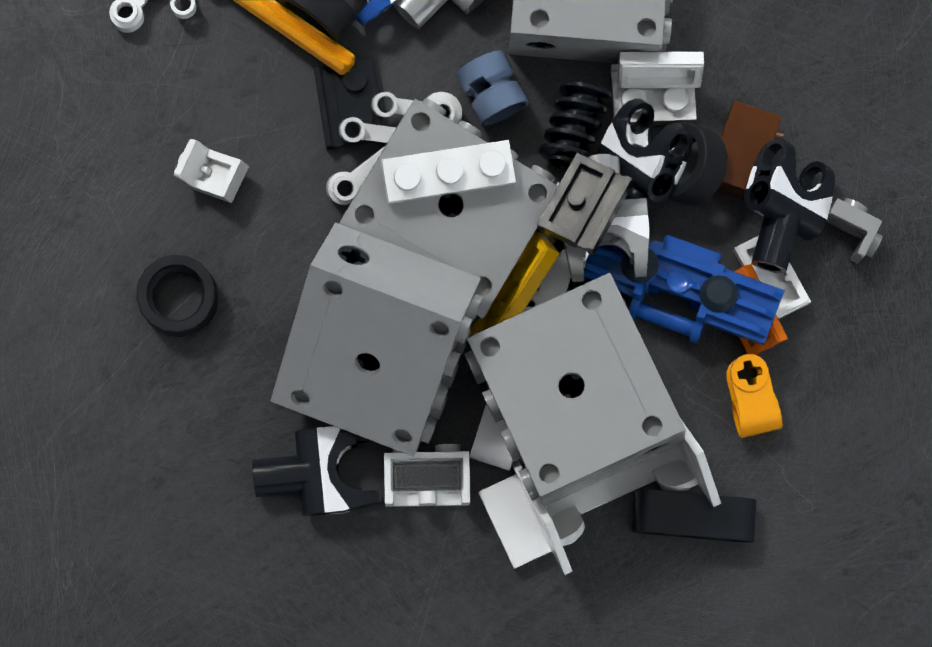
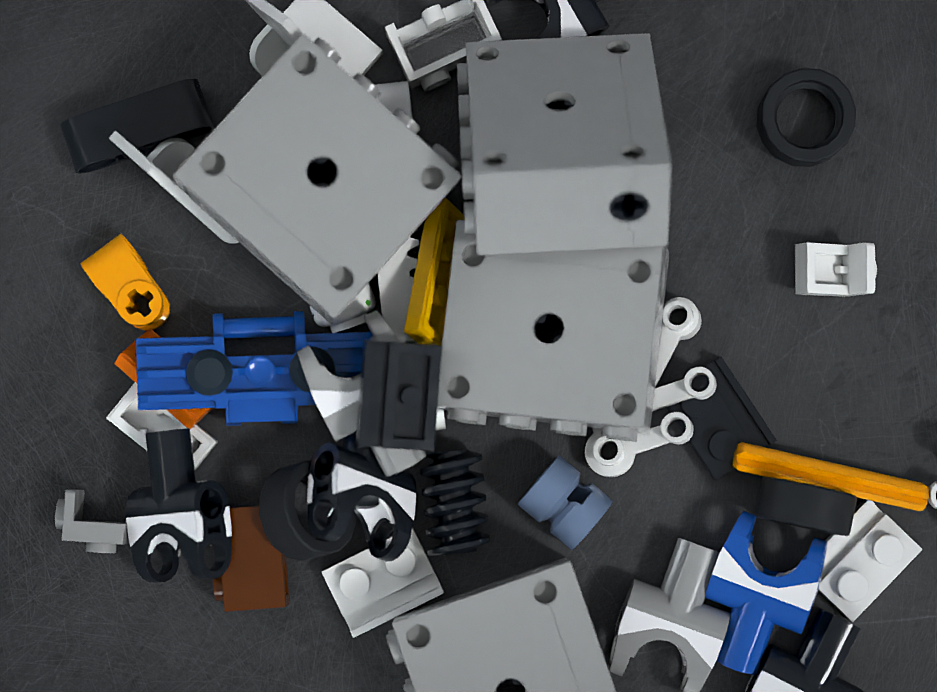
camera: 160 degrees right, 5 degrees up
(448, 171) = (567, 360): white plate -> none
(660, 69) = (384, 604): white tile -> none

